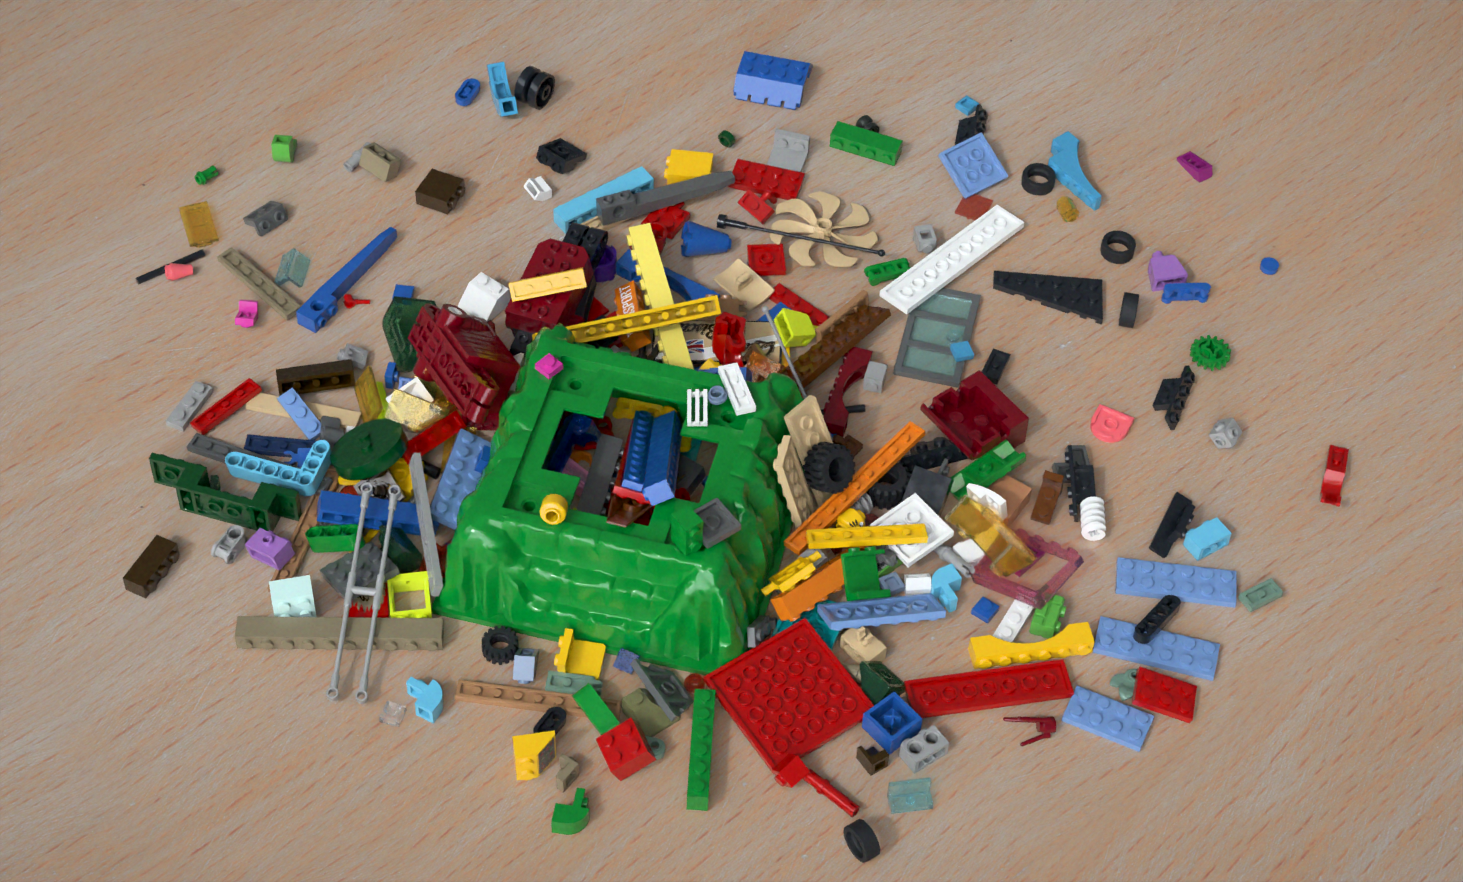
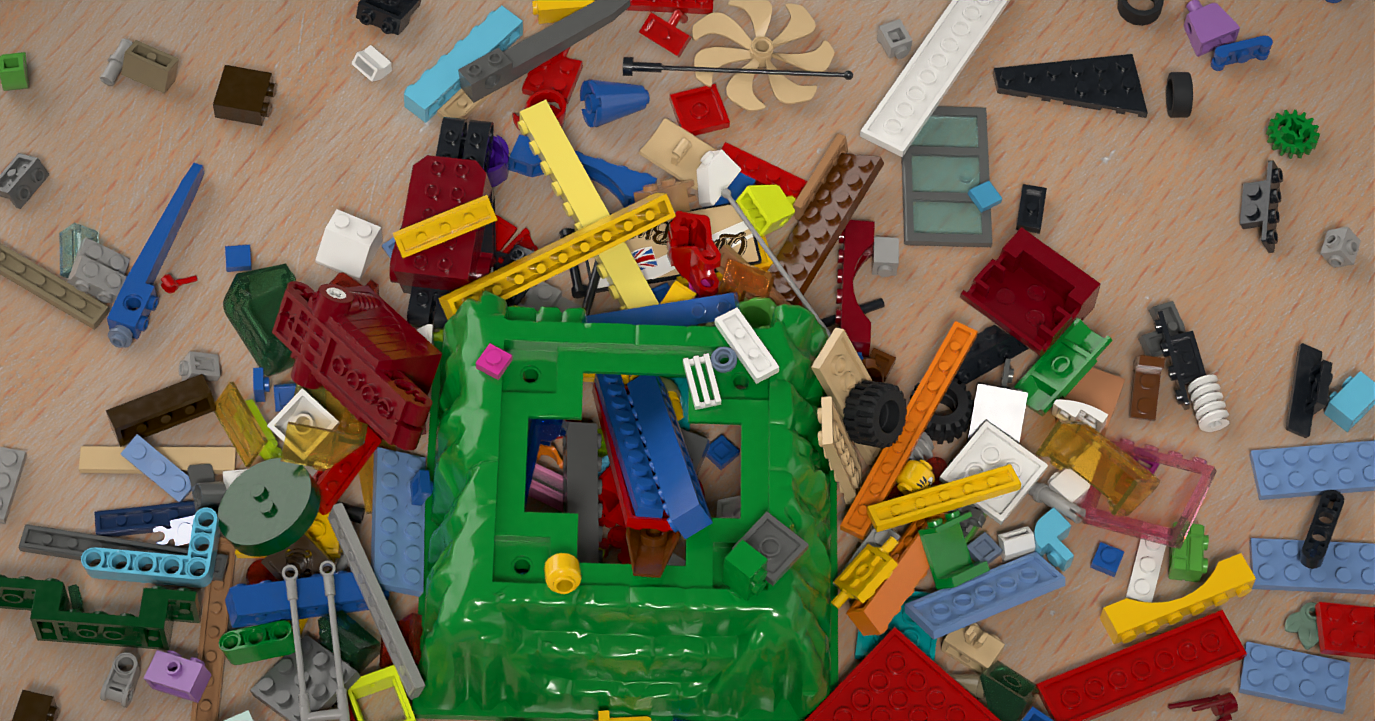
camera: 15 degrees left, 10 degrees up
(226, 406) = (53, 477): red tile -> none
(247, 313) = (39, 332): dark pink bracket -> none
(300, 281) = (98, 271): none -> light grey plate
(303, 327) = (120, 336): none -> sand blue plate
(630, 300) = (546, 222): orange brick -> none
(760, 629) = (841, 653): dark grey hinge -> none
(764, 296) = (714, 175): none -> white slope
(886, 270) = (859, 95): green plate -> none
(1110, 424) = (1193, 261): coral tile -> none

